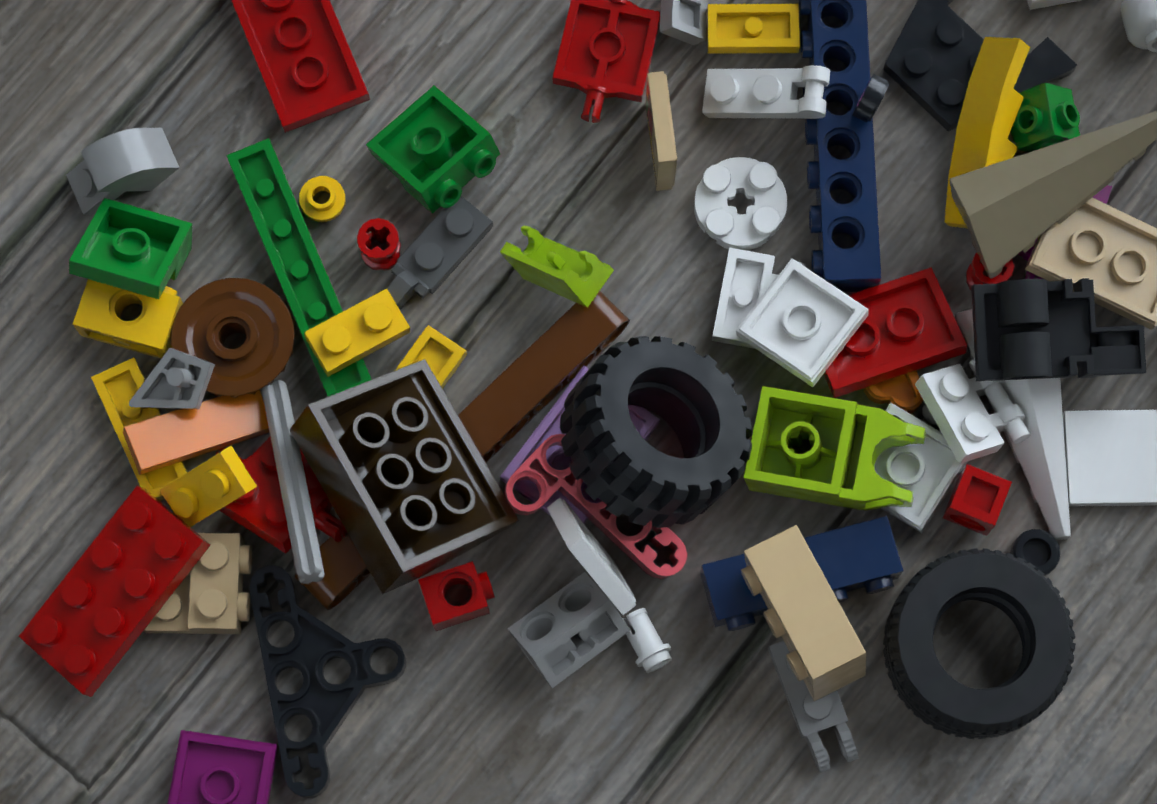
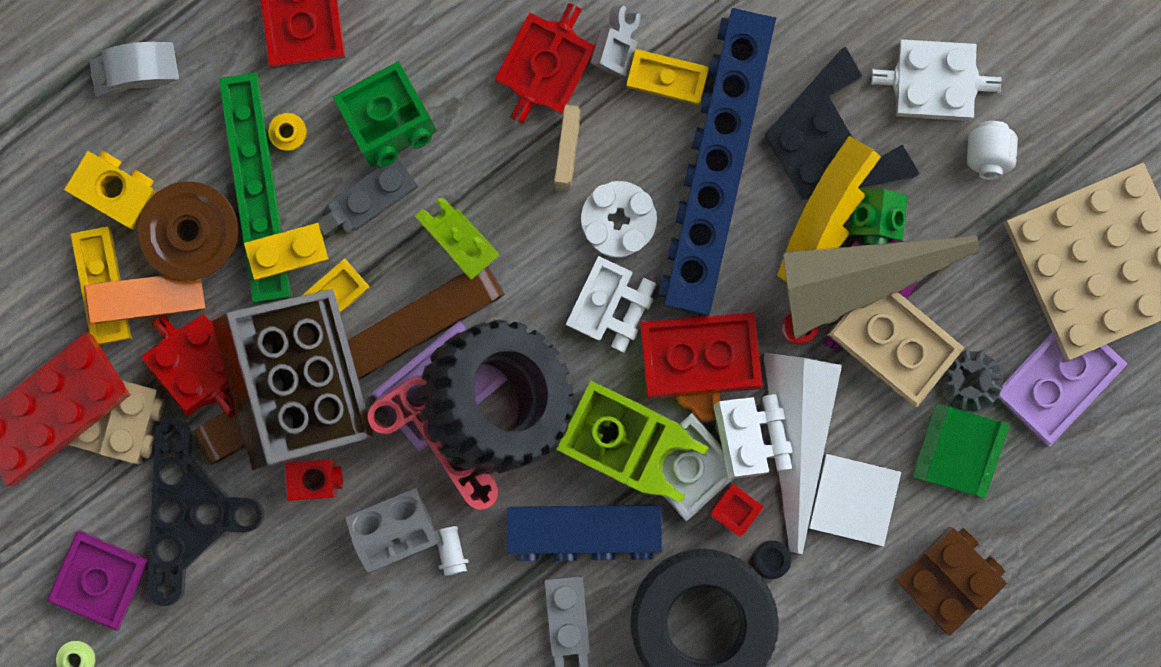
camera: 15 degrees right, 10 degrees up
(132, 248) = (124, 140): green plate -> none
(175, 382) = (133, 258): light grey piece -> none
(208, 487) = (138, 351): yellow plate -> none
(293, 484) = (204, 365): light grey axle -> none
(382, 231) = (311, 180): red bush -> none
(592, 555) = (421, 481): white tile -> none
(766, 93) = (660, 136): white plate -> none
(802, 322) = (638, 333): white tile -> none
(804, 613) = (571, 569): tan wedge -> none
(871, 98) = (740, 167): black tile -> none
(1047, 332) = (823, 393): black plate -> none

